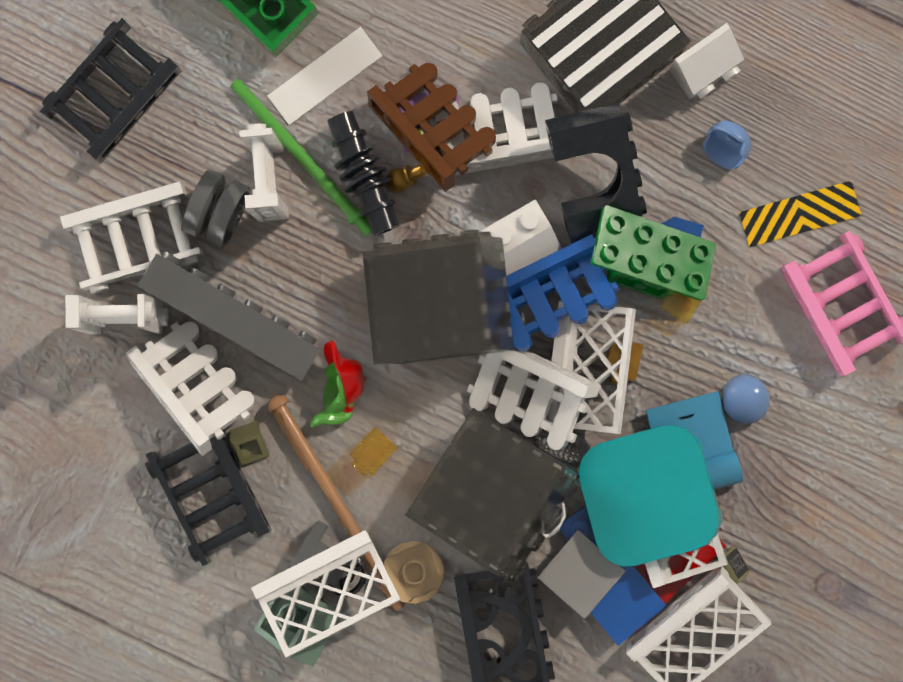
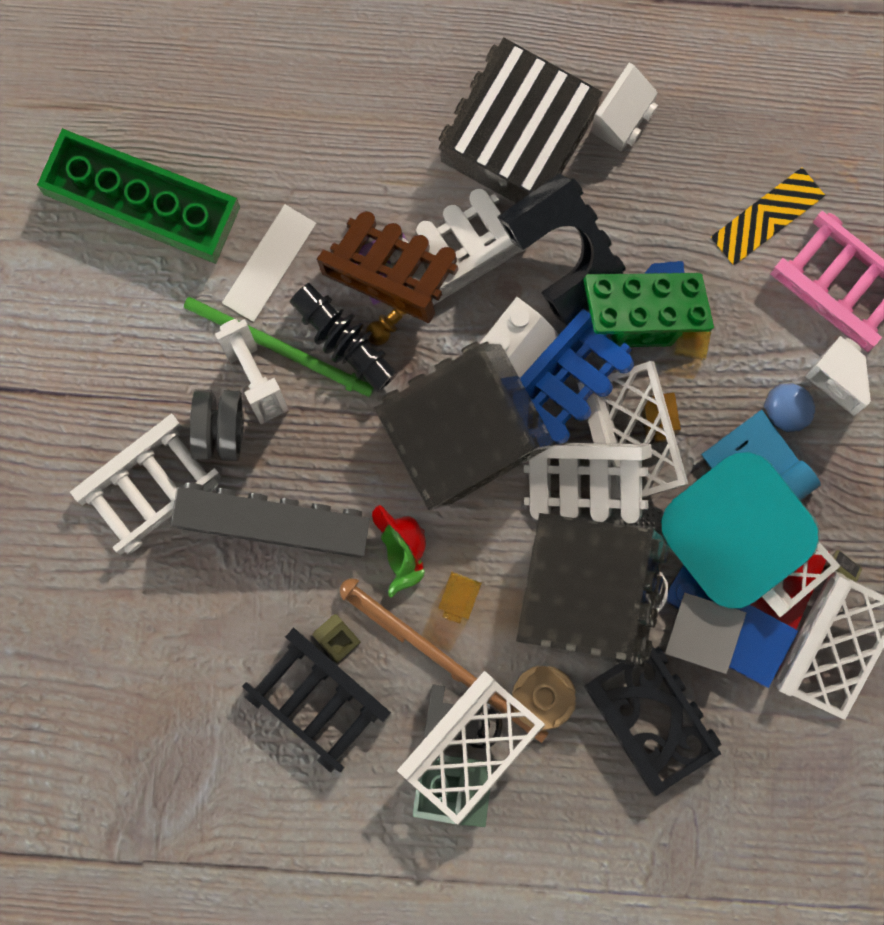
camera: 30 degrees left, 5 degrees down
(89, 316) = (139, 571): white fence -> none
(121, 119) = (91, 378): black fence -> none
(194, 400) = (268, 616): white fence -> none
(727, 144) = (674, 177): medium blue hair -> none
(805, 390) = (843, 375): none -> white slope

